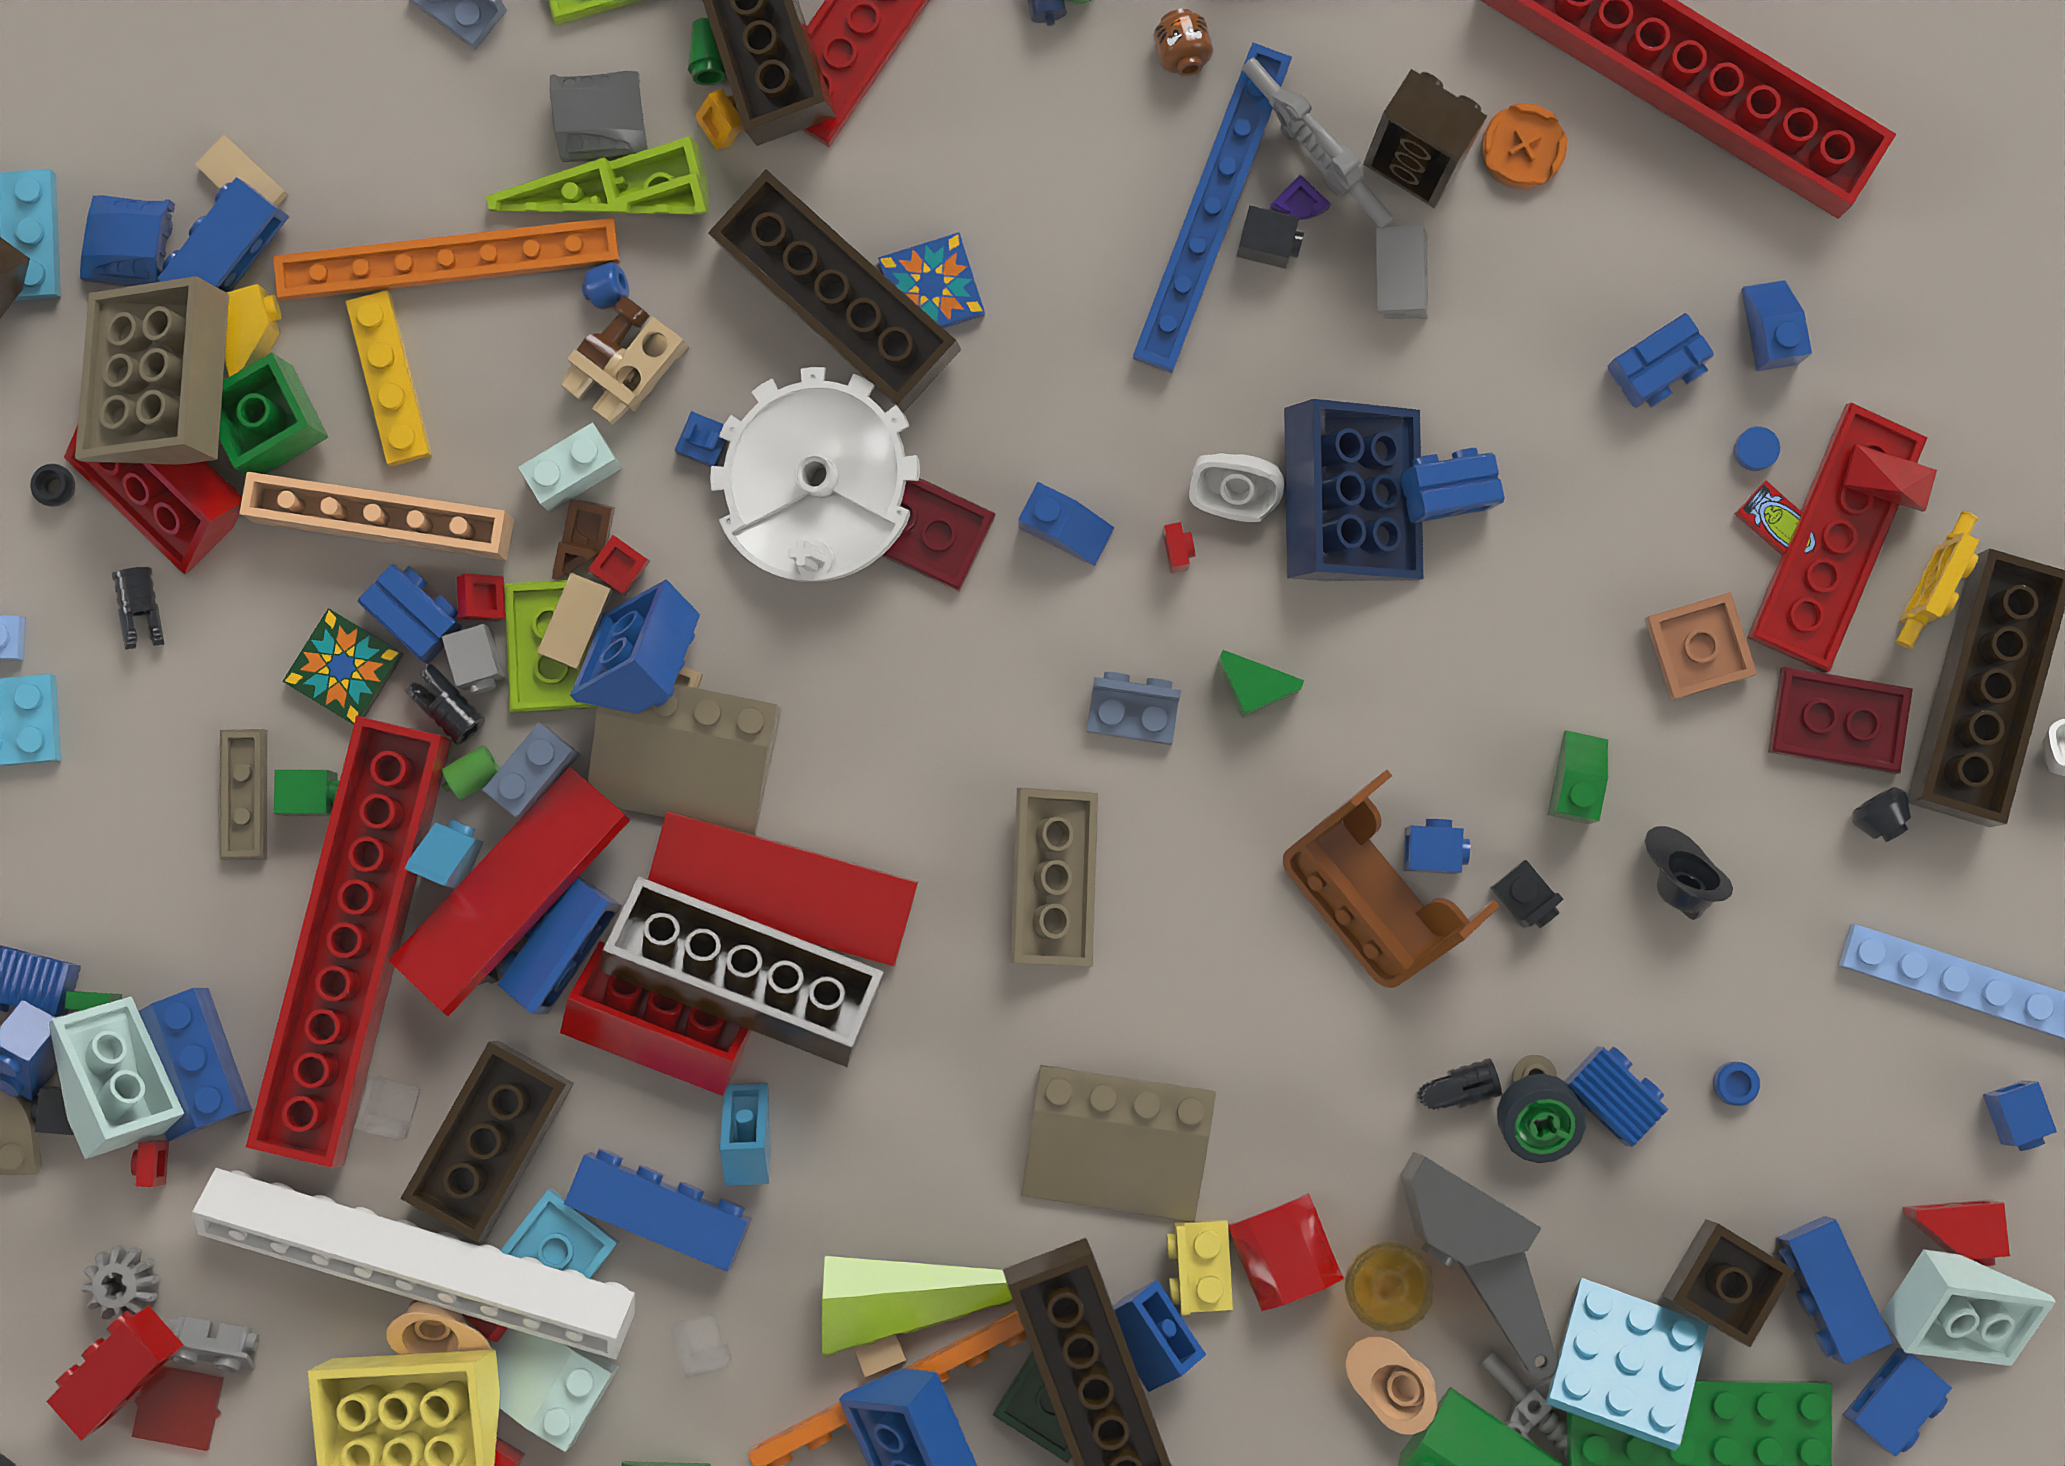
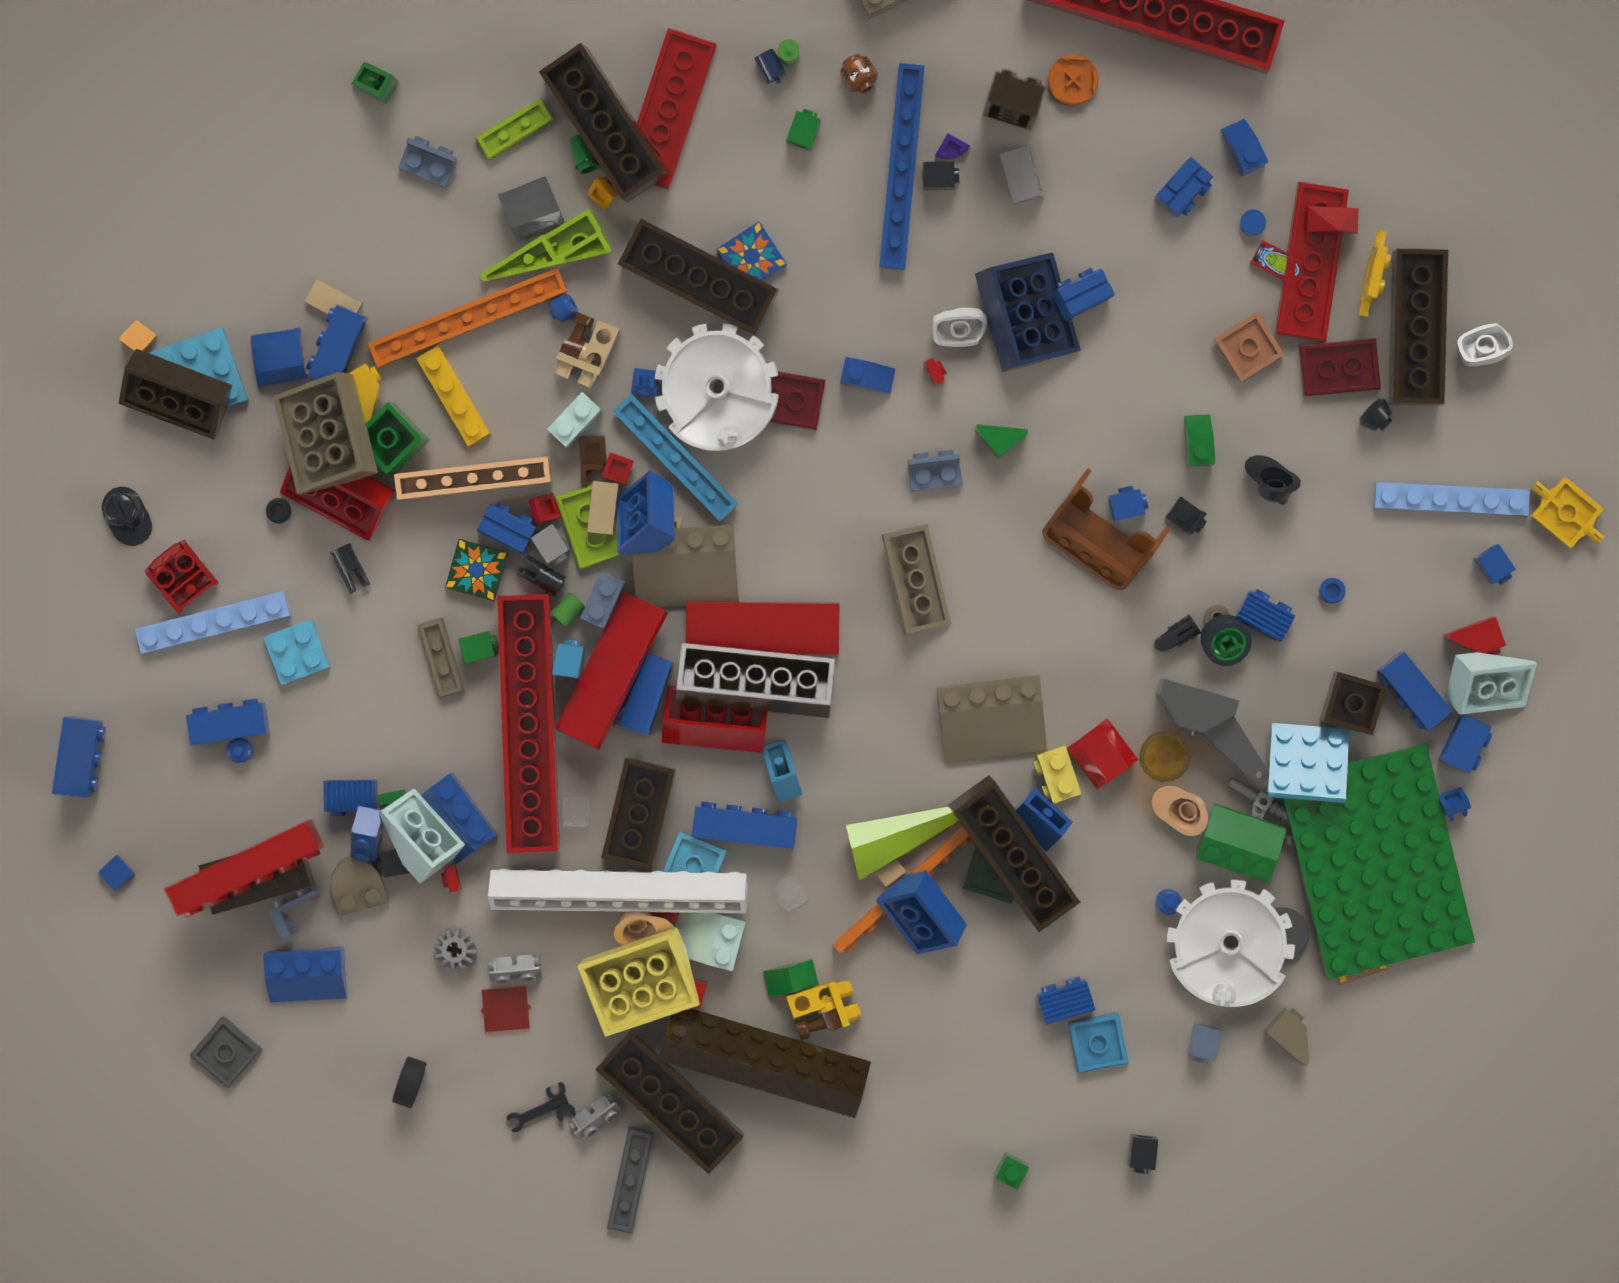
camera: 15 degrees left, 5 degrees up
(113, 1371) = (467, 996): red brick -> none
(717, 573) = (675, 457): none -> dark azure plate
(1070, 107) = (803, 129): none -> green brick
(1334, 161) = (969, 125): light grey bar -> none

